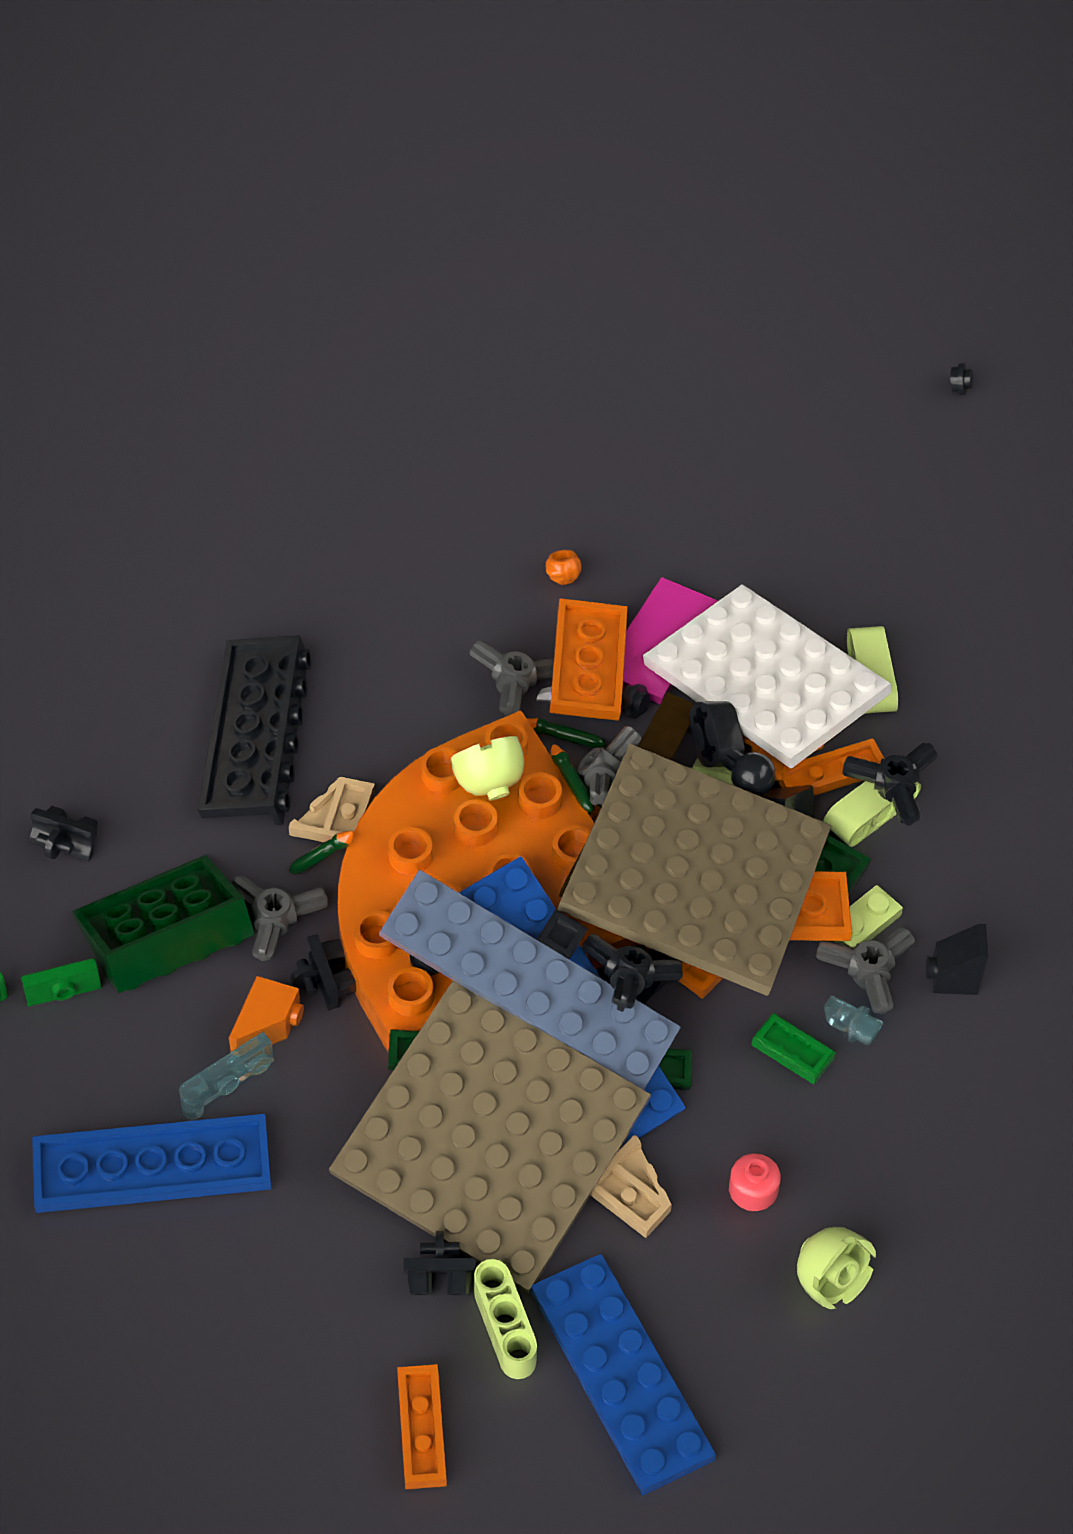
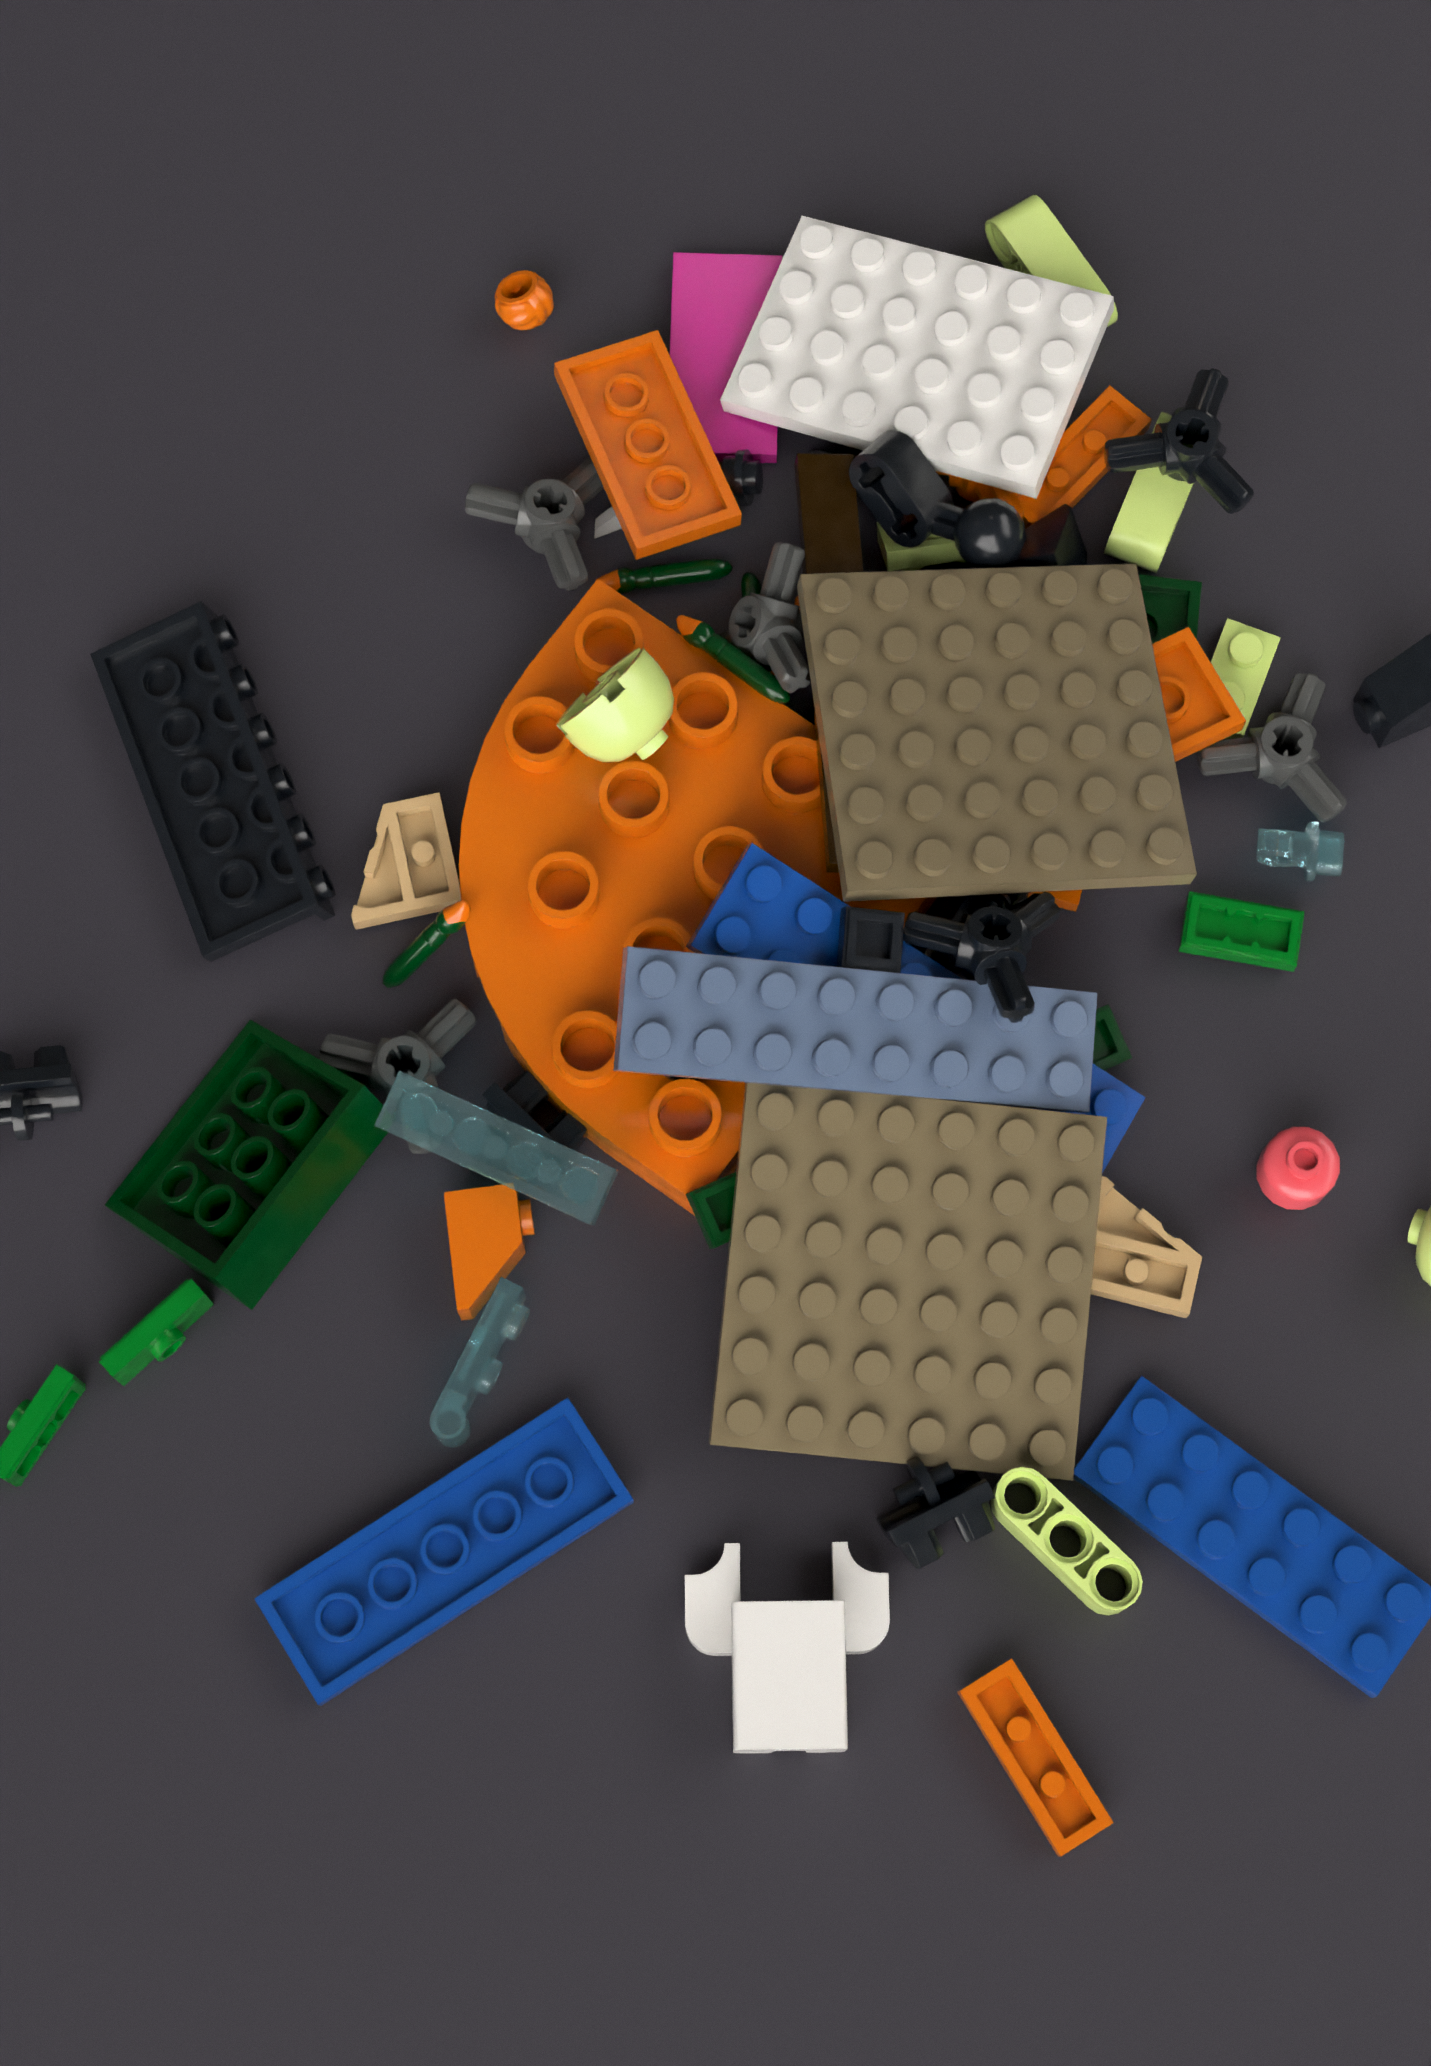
camera: 25 degrees left, 20 degrees up
(298, 963) = (496, 1148): none -> clear light blue plate
(312, 1302) = (788, 1653): none -> white piece

